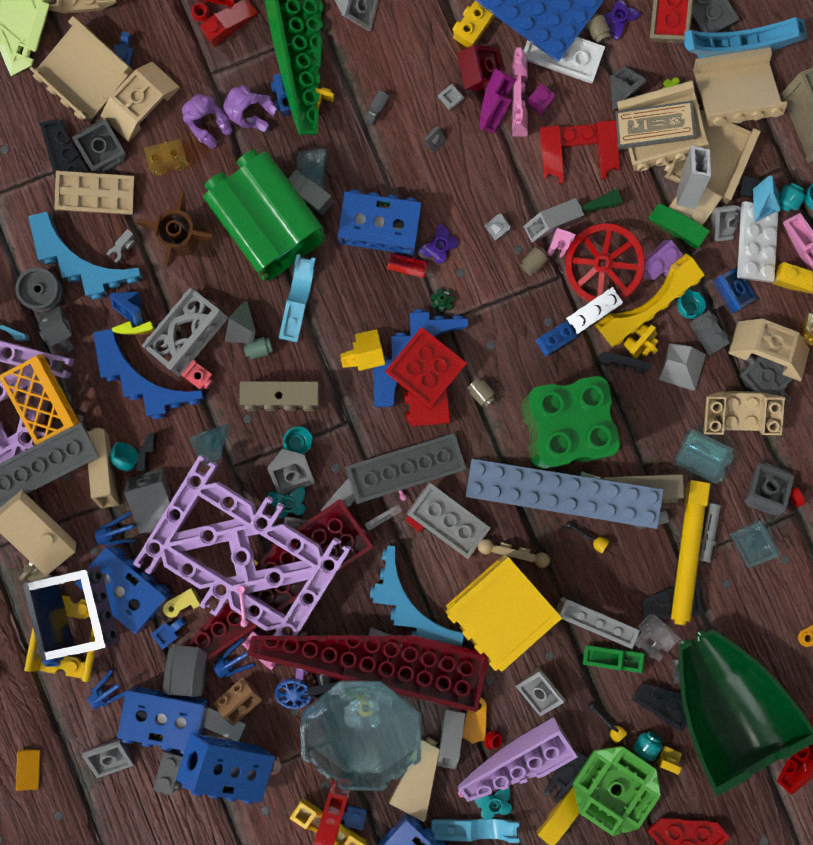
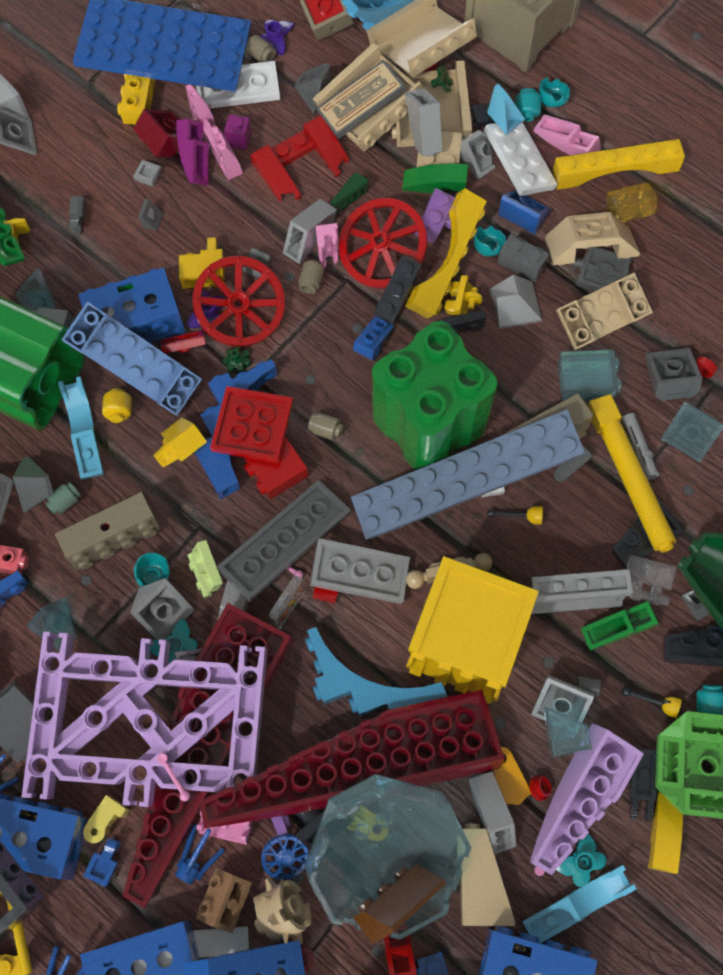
camera: 25 degrees left, 15 degrees down
(185, 671) = (143, 895): dark grey slope -> none
(272, 731) = (281, 911): none -> tan brick
(332, 293) = (117, 405): none -> yellow head
(336, 460) = (204, 569): none -> yellowish green plate
(353, 768) = (397, 902): none -> reddish brown slope
(362, 268) = (131, 358): none -> medium blue slope
(453, 210) = (194, 264): none -> yellow hinge
(498, 270) = (242, 297): none -> red wheel
(529, 717) = (565, 734): none -> clear light blue slope
(567, 688) = (589, 684): none -> dark grey hinge
(734, 137) = (442, 79): none -> dark green plant

